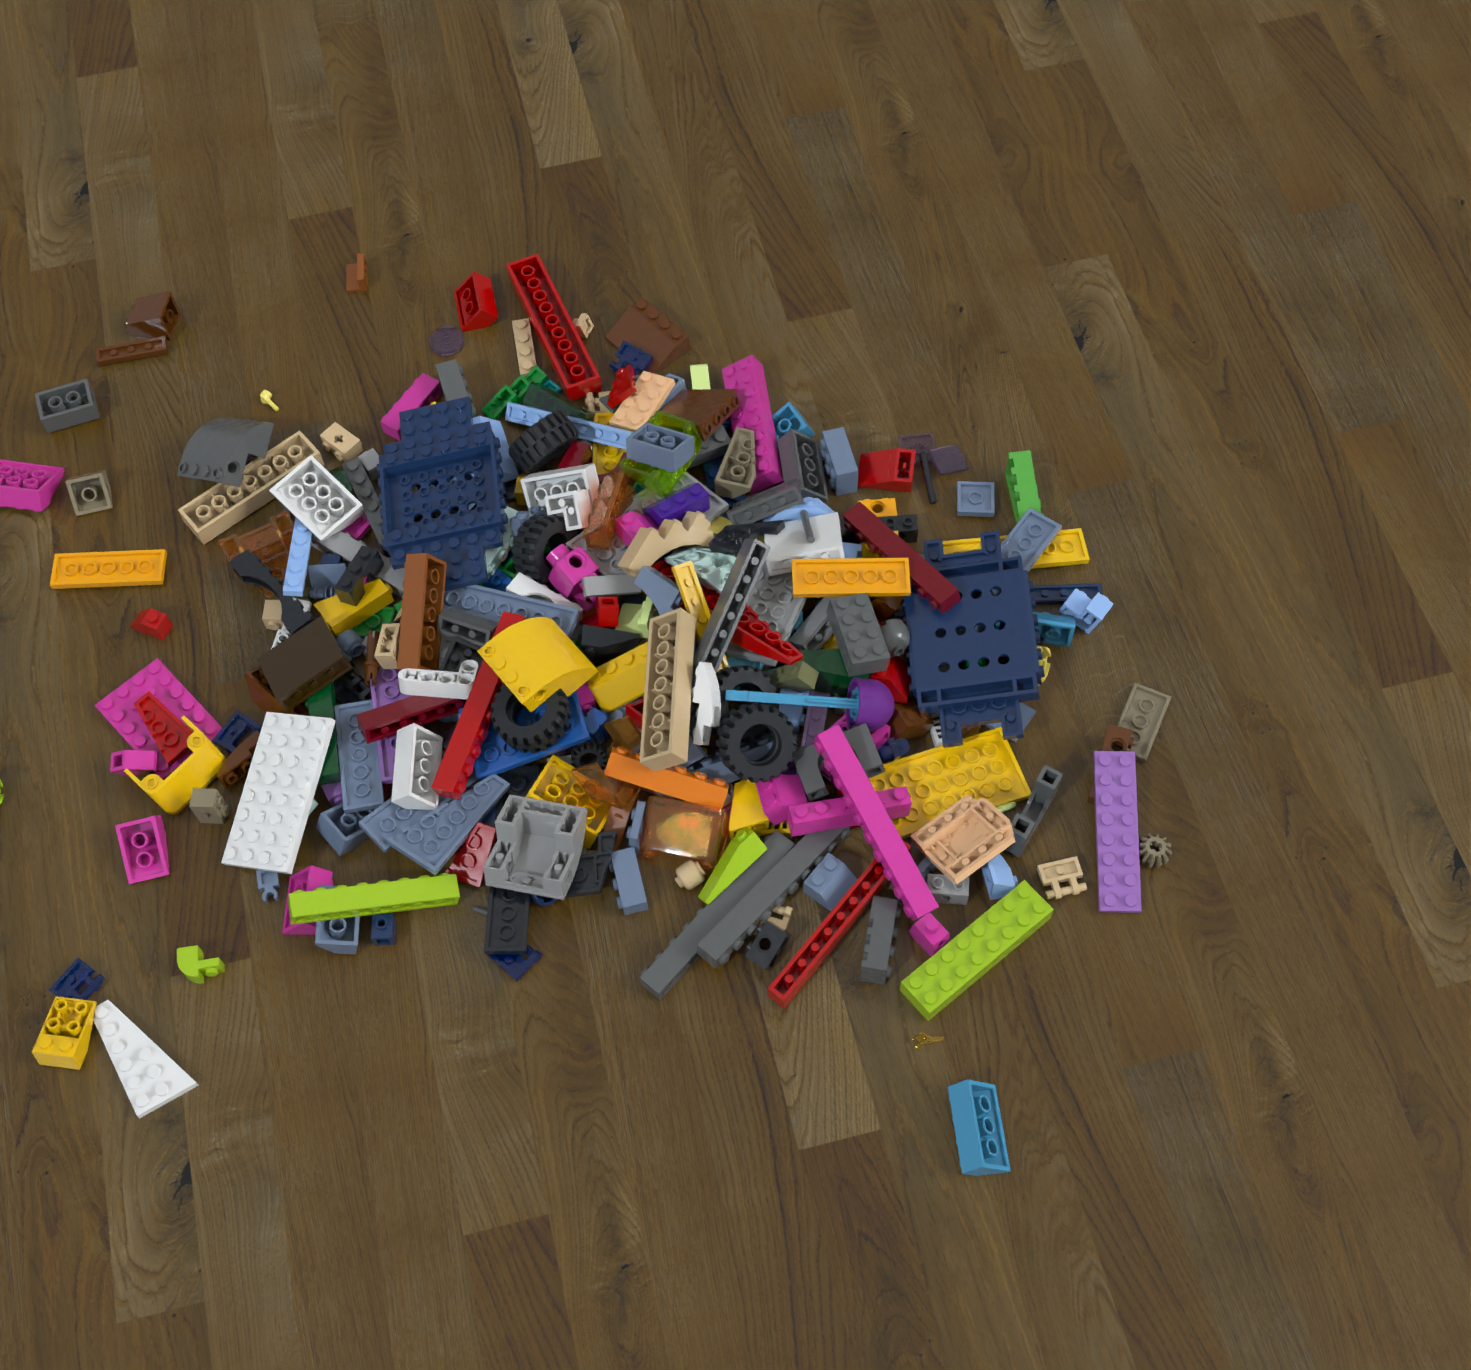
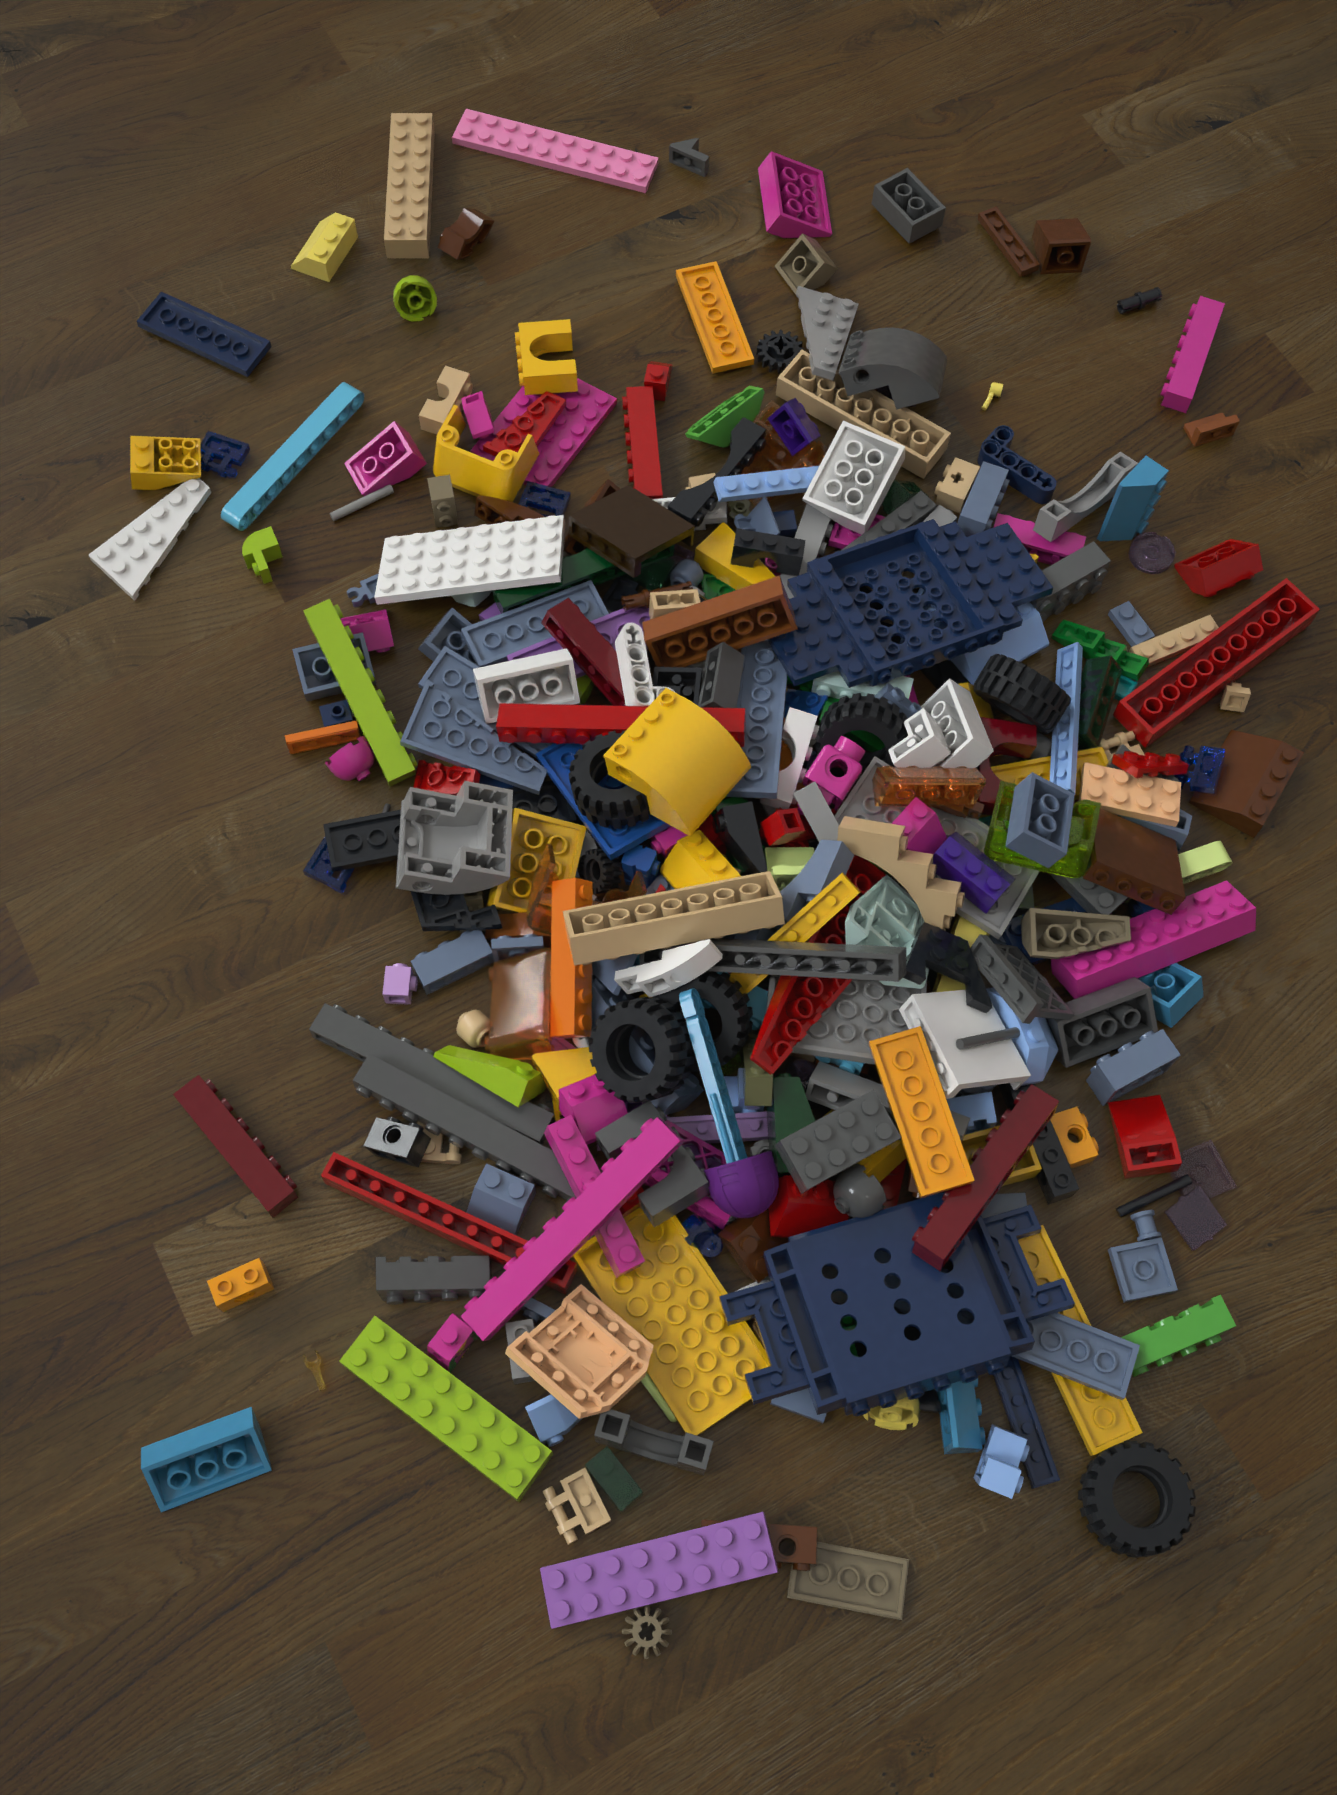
camera: 70 degrees right, 5 degrees up
(106, 923) = (292, 456): none -> medium azure beam
(113, 709) = (542, 375): none -> yellow arch
(115, 797) = (452, 386): none -> tan arch
(158, 488) = (826, 326): none -> light grey wing
(165, 530) = (770, 347): none -> black gear
(176, 876) = (362, 502): none -> light grey bar
(211, 647) = (642, 441): none -> red brick
(214, 580) = (717, 425): none -> bright green wedge
(226, 284) = (1139, 300): none -> black pin
(253, 530) = (794, 426): none -> dark purple slope
(290, 265) = (1193, 353): none -> dark pink brick
(342, 403) = (1022, 474): none -> dark blue beam
(369, 430) = (983, 499): none -> sand blue wedge
(390, 361) = (1061, 515): none -> light grey arch
(397, 944) = (322, 737): none -> orange tile
(411, 330) = (1134, 501): none -> dark azure slope
(428, 922) = (352, 761): none -> dark pink cylinder
(501, 370) = (1130, 624): none -> sand blue plate
(636, 923) = (399, 984): none -> lavender brick
(736, 1069) = (236, 1146): none -> dark red brick
(851, 1081) = (240, 1285): none -> light orange brick
(947, 488) = (1145, 1225): none -> sand blue bush
(1050, 847) = (614, 1479): none -> clear green brick
(1129, 523) = (1172, 1491): none -> black tyre

